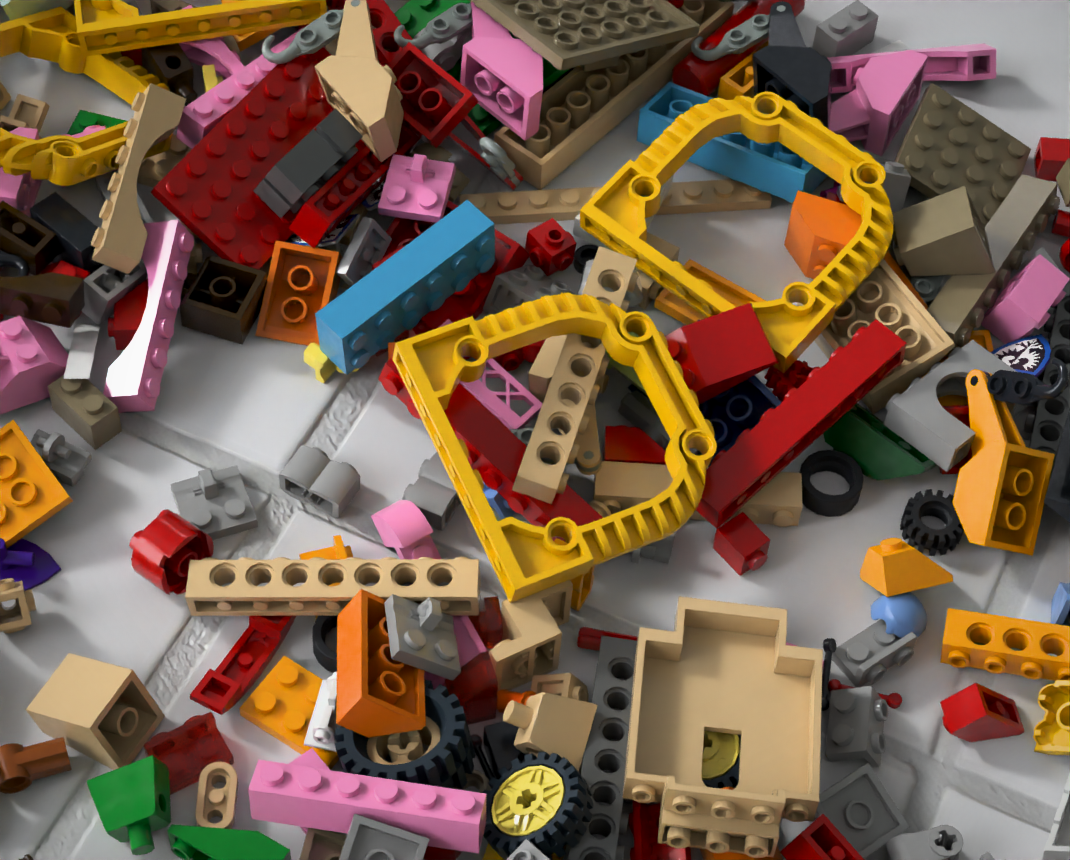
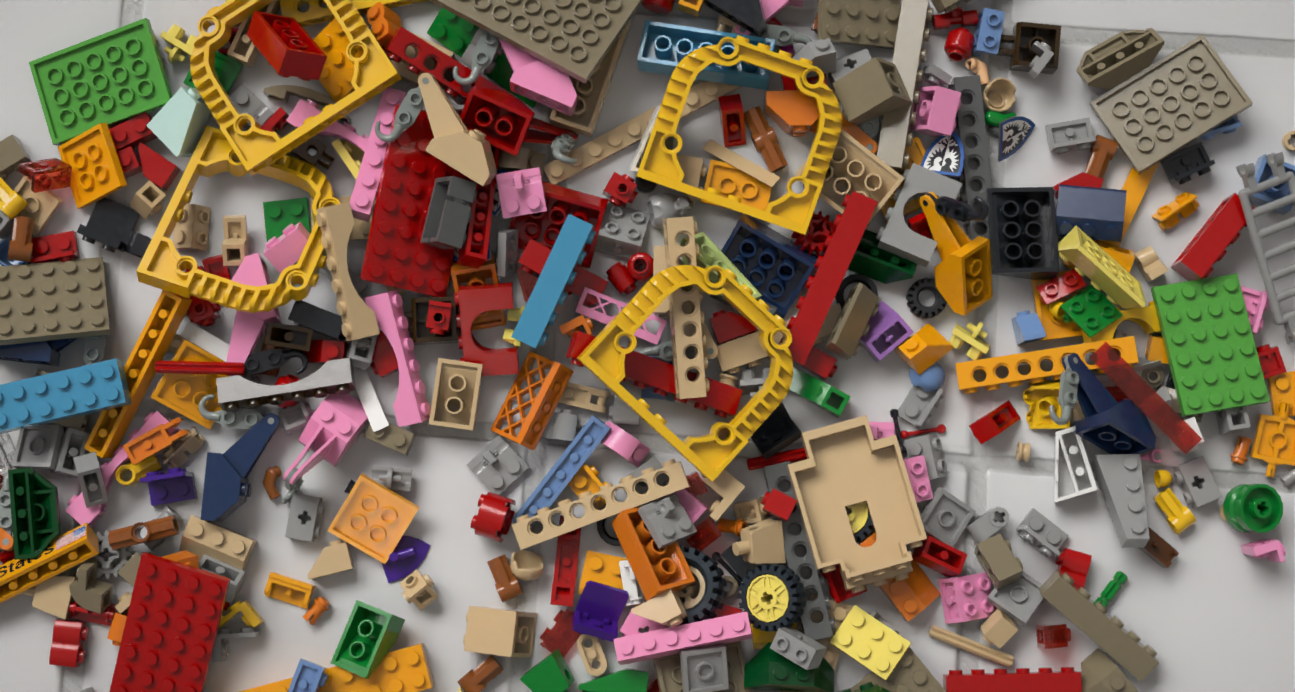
camera: 20 degrees left, 30 degrees up
(142, 645) = (506, 583): none -> dark orange piece
(182, 639) = (526, 565): none -> tan hair
(202, 389) = (456, 394): none -> tan slope
(232, 277) = (445, 310): none -> red brick
(260, 727) = (599, 611): none -> dark purple bracket
(283, 285) = (472, 302): none -> red arch
(307, 434) = (542, 405): none -> orange fence
(321, 522) = (564, 468): none -> medium blue plate
(353, 741) = (663, 609): none -> tan slope
(372, 459) = (580, 397): none -> tan plate
(603, 681) = (778, 504): none -> red brick
(635, 590) = (776, 432): none -> black bracket
(721, 351) = (760, 249): red slope -> none
(722, 572) = (818, 393): none -> green slope
(725, 274) = (741, 163): none -> tan sticker
(736, 231) = (732, 120): none -> red slope
(771, 260) = (765, 139): none -> dark orange piece
(812, 487) = (852, 322): none -> dark tan slope
(836, 737) = (919, 478): none -> bright pink bracket
(845, 536) = (885, 332): none -> medium lavender slope
(969, 584) = (978, 345): none -> light yellow hips
(1014, 773) = (1023, 451): none -> tan bush

